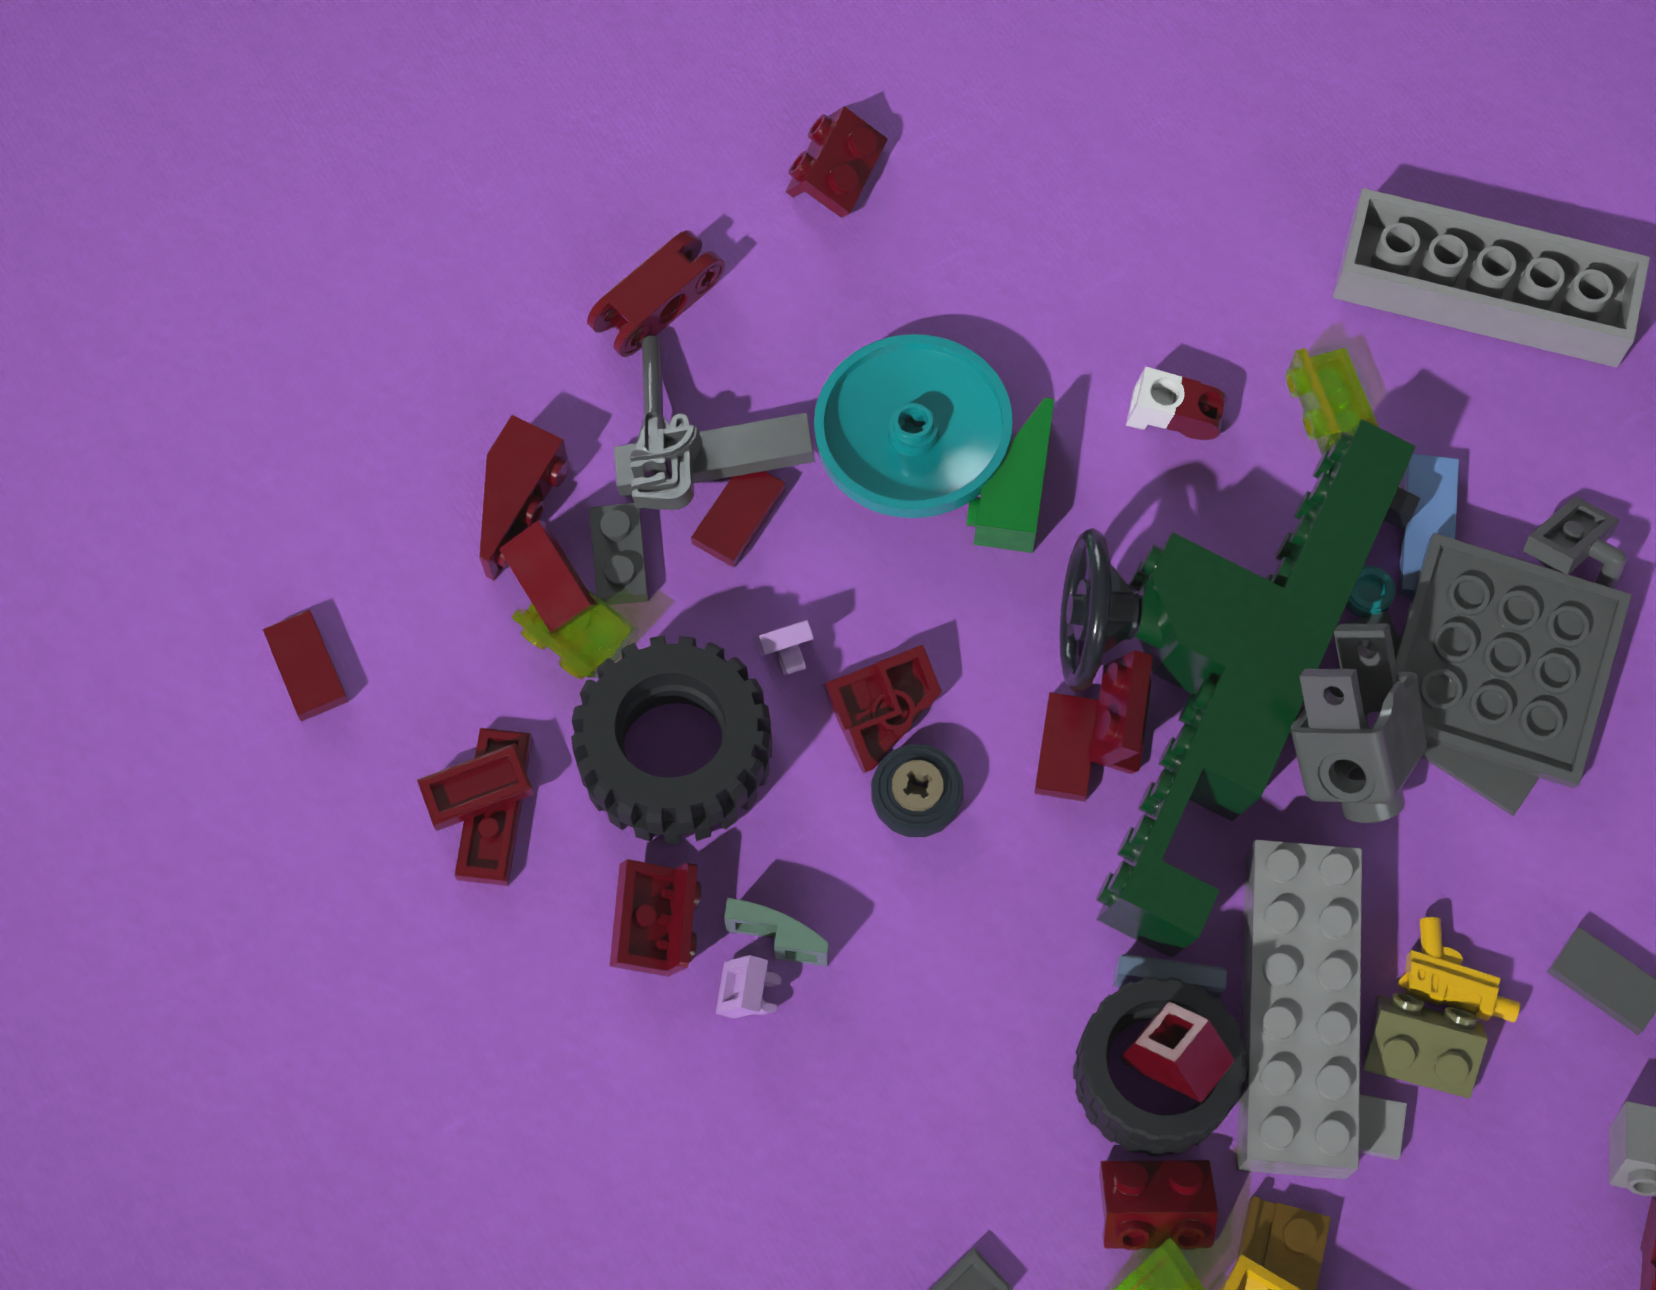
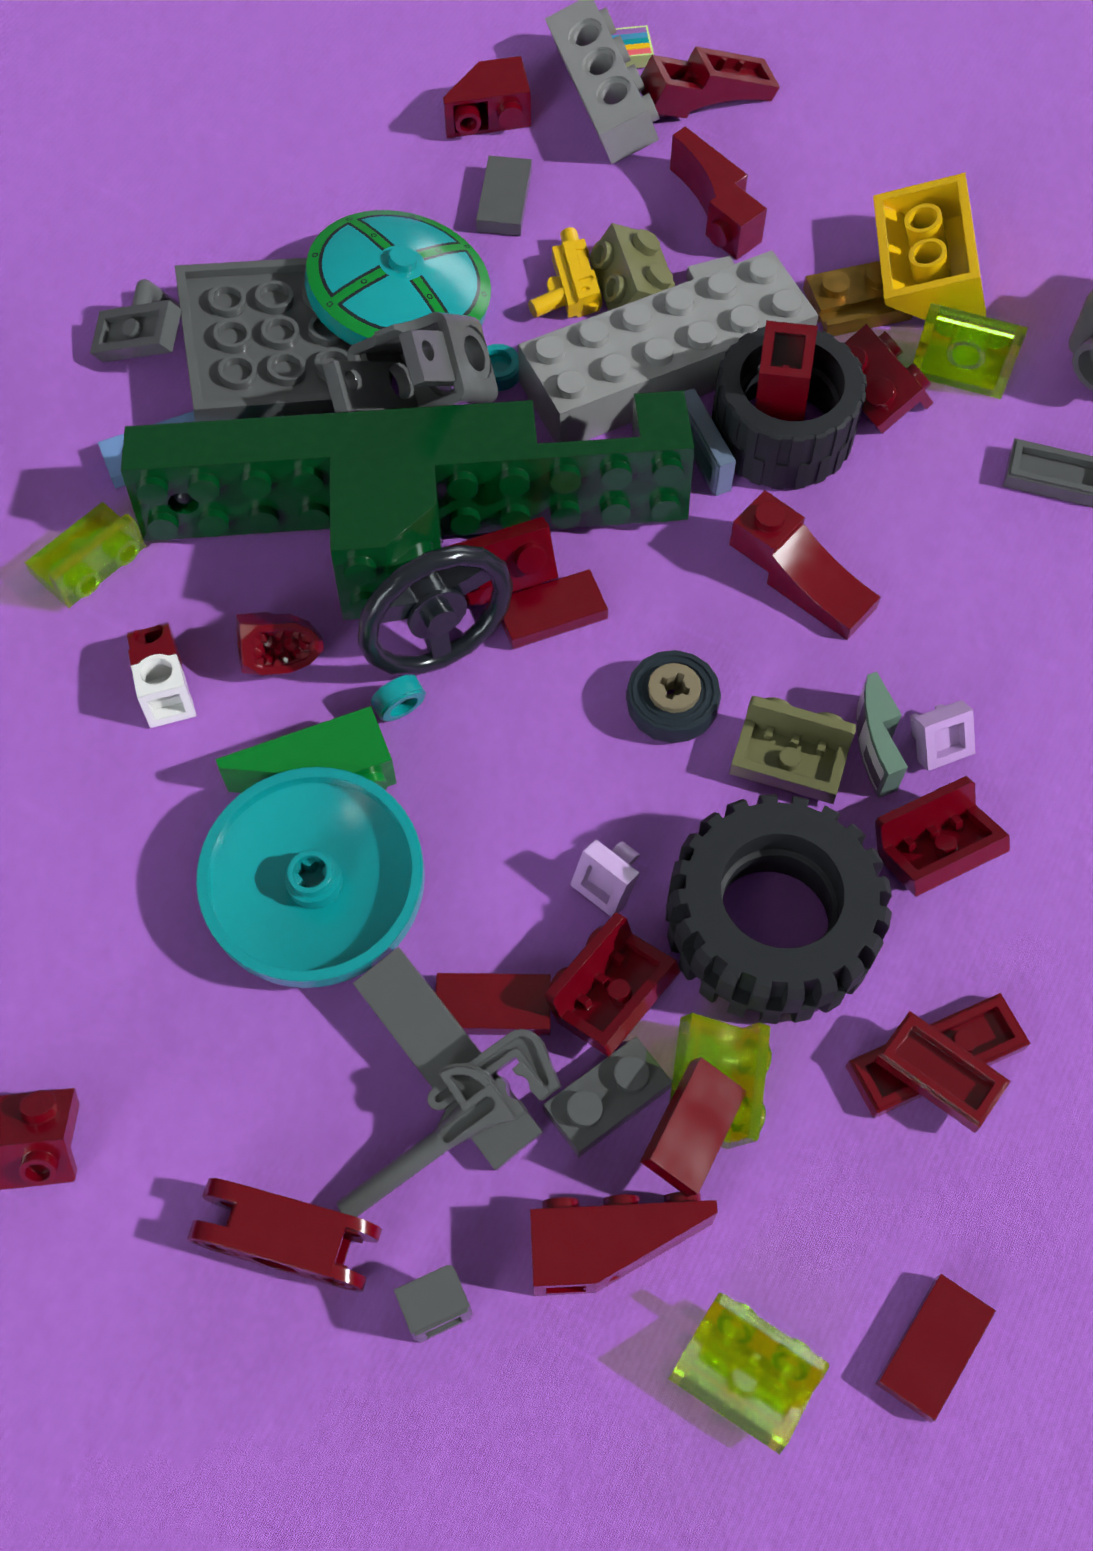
camera: 120 degrees left, 5 degrees down
(371, 525) = (749, 1372): none -> clear neon green bracket
(545, 356) = (433, 1303): none -> dark grey slope
(695, 592) = (610, 985): none -> dark red bracket
(804, 851) = (793, 748): none -> olive bracket
(882, 702) = (604, 770): dark red slope -> none
(980, 979) = (800, 566): none -> dark red slope
(1043, 572) = (398, 698): none -> teal tile
(1151, 500) = (276, 643): none -> dark red rock
(1379, 848) = (505, 365): none -> teal tile
(1452, 1184) = (733, 215): none -> dark red slope
(1519, 799) = (391, 270): none -> teal dish

